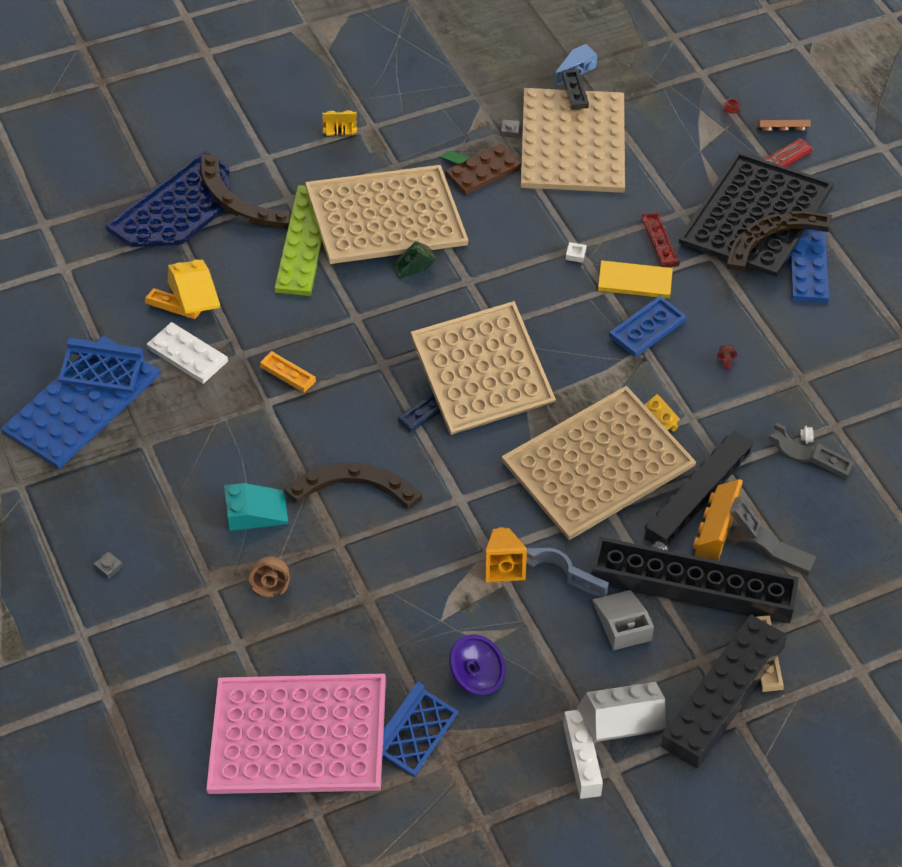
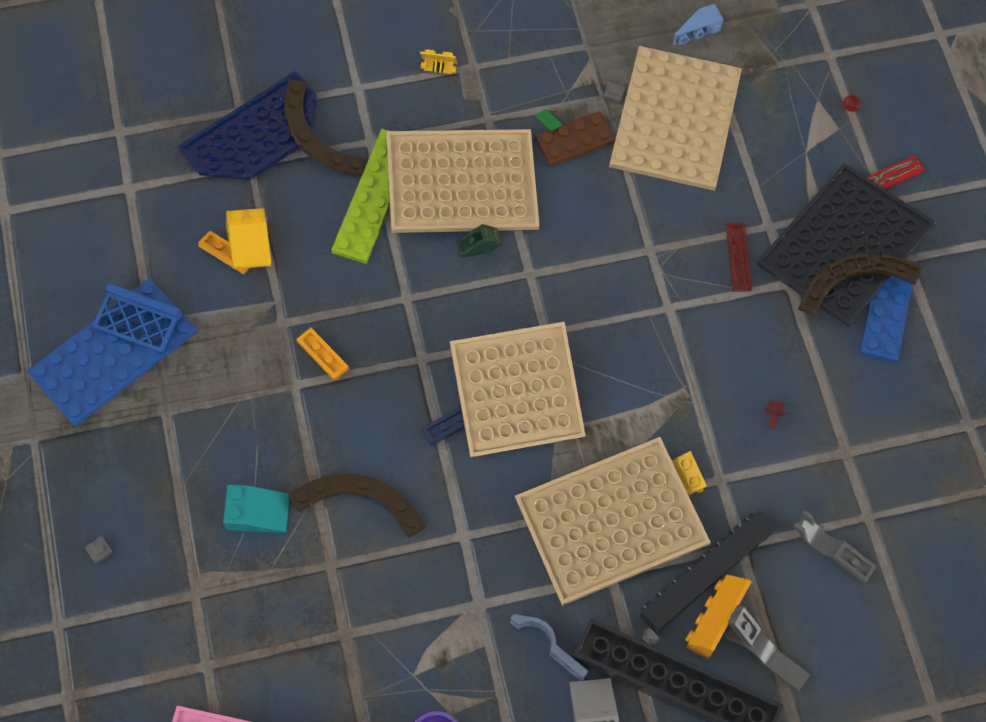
camera: 10 degrees right, 15 degrees up
(187, 352) = (228, 312): white plate -> none
(269, 576) = (251, 597): medium nougat cylinder -> none
(505, 557) = (490, 616): light orange slope -> none
(575, 89) = (690, 59): black plate -> none
(576, 252) = (647, 259): white plate -> none
(635, 279) = (701, 301): yellow tile -> none
(647, 326) = (700, 362): blue plate -> none
(783, 124) = (901, 135): nougat plate -> none
(807, 434) = (835, 524): white plate -> none

